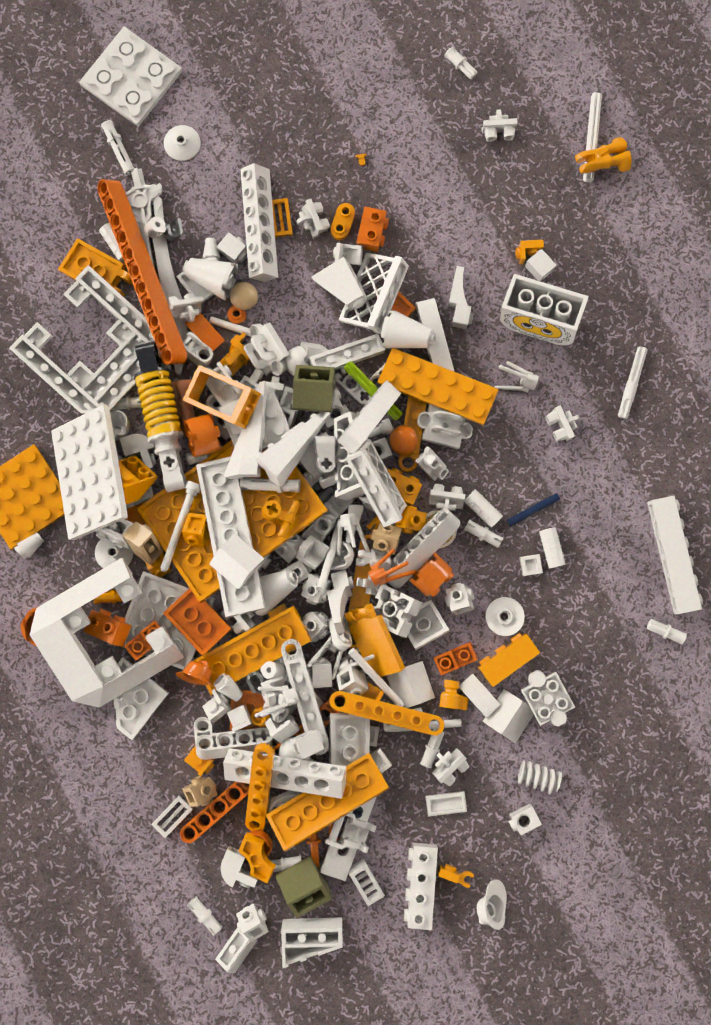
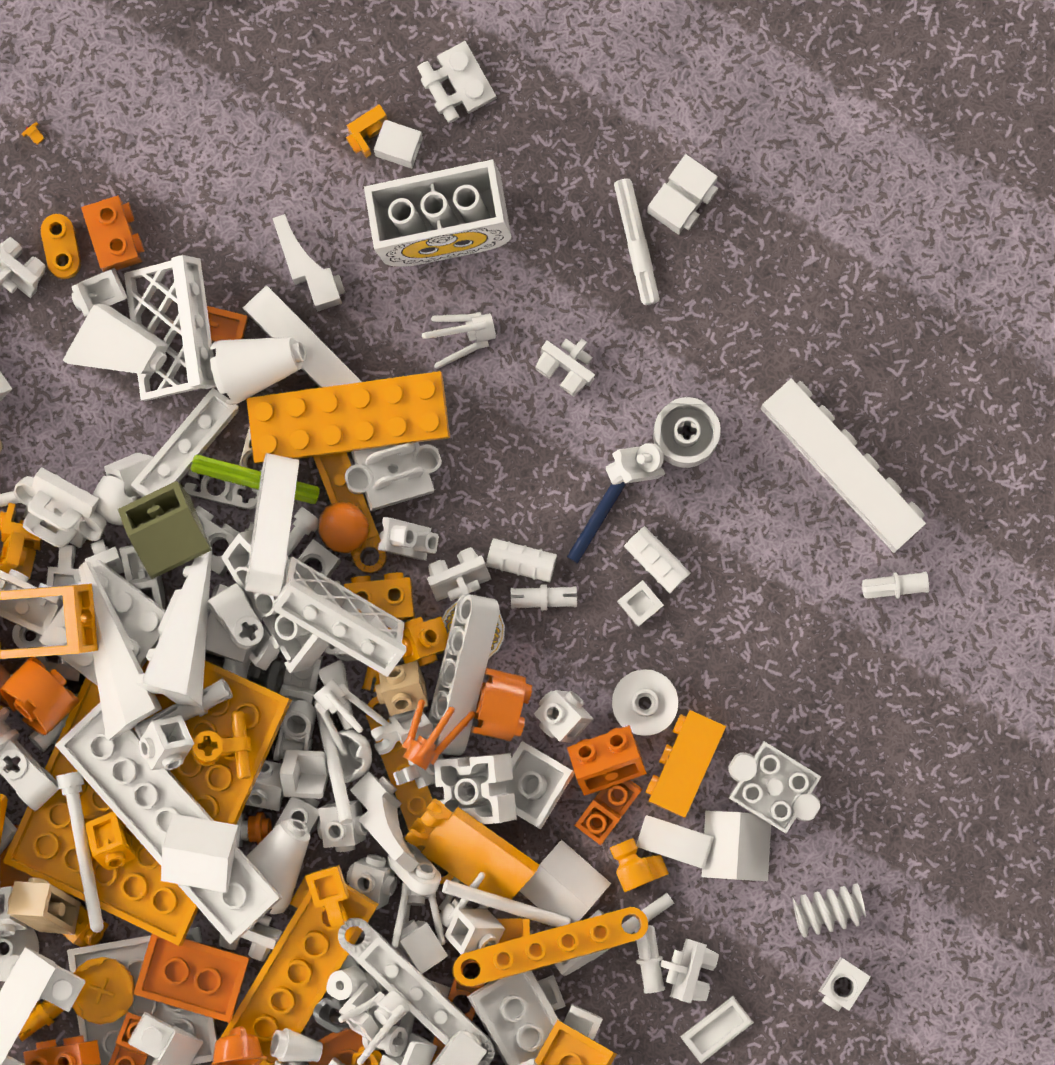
camera: 25 degrees left, 0 degrees up
(150, 603) = (106, 990): none -> light orange tile
(252, 495) = (166, 743): none -> white brick
(274, 565) = (258, 827): none -> orange plate
(291, 618) = (328, 890): none -> light orange plate
(469, 634) = (606, 760): none -> orange brick
(570, 493) = (636, 464): none -> white hips
(592, 252) = (466, 78): none -> white plate
(614, 489) = (700, 419): none -> white brick
(666, 373) = (683, 194): none -> white piece

